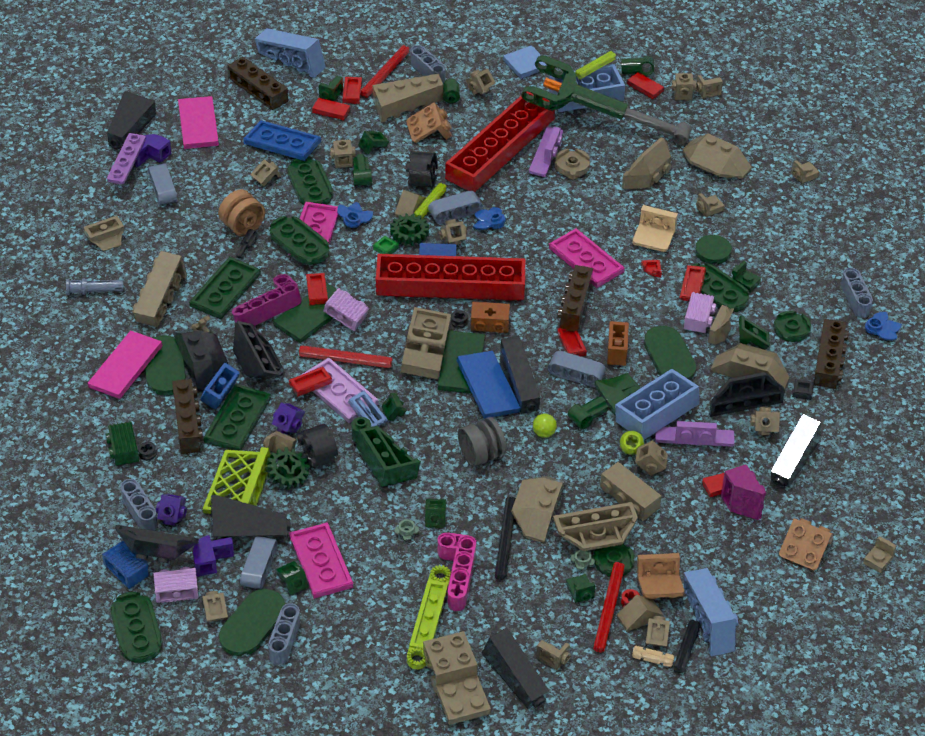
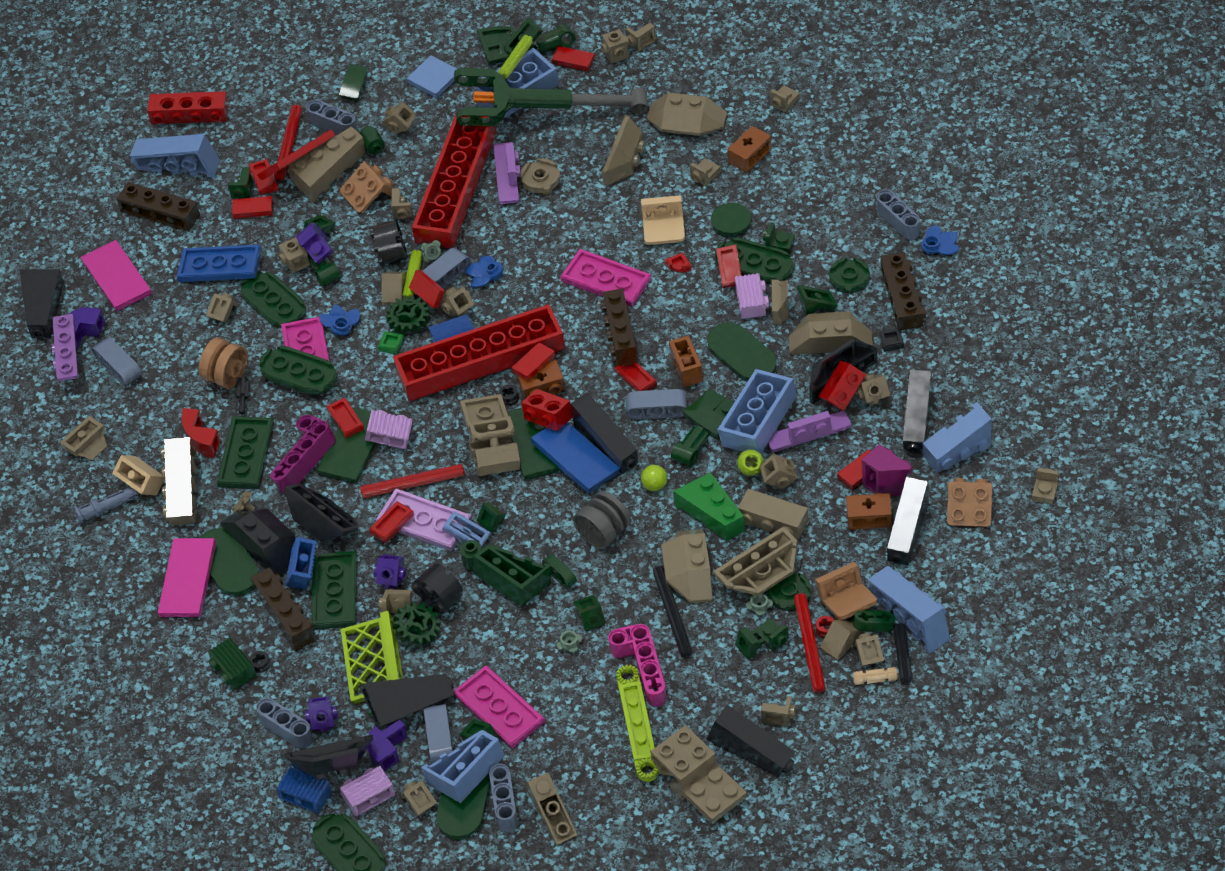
camera: 15 degrees left, 5 degrees up
(129, 272) = (138, 475): none -> tan brick
(196, 265) = (205, 440): none -> red brick
(263, 595) = (464, 767): none -> medium blue wedge
(319, 658) = (550, 808): none -> dark tan slope
(320, 20) = (188, 107): none -> red brick
(362, 148) = (315, 242): none -> dark purple brick
(369, 81) = (296, 155): none -> red tile
(427, 470) = (560, 571): none -> dark green beam
(433, 214) = (426, 288): none -> red tile
(446, 146) = (399, 208): none -> dark tan bracket
(451, 184) = (435, 245): none -> sand green plate
(460, 43) = (353, 82): none -> dark green slope
(481, 339) = (547, 409): none -> red brick
(490, 298) = (533, 361): none -> red tile
(557, 586) = (748, 643): none -> dark green tile
(580, 464) = (711, 505): none -> green wedge
(587, 51) = (493, 42): none -> dark green plate
(618, 48) = (528, 28): none -> dark green slope
(673, 609) = (874, 621): none -> dark green beam
(714, 518) = (869, 511): none -> dark orange brick
(739, 408) = (842, 385): none -> red brick
(745, 537) = (908, 519): none -> slope
(755, 200) = (749, 149): none -> dark orange brick
(822, 489) = (960, 440): none -> medium blue wedge

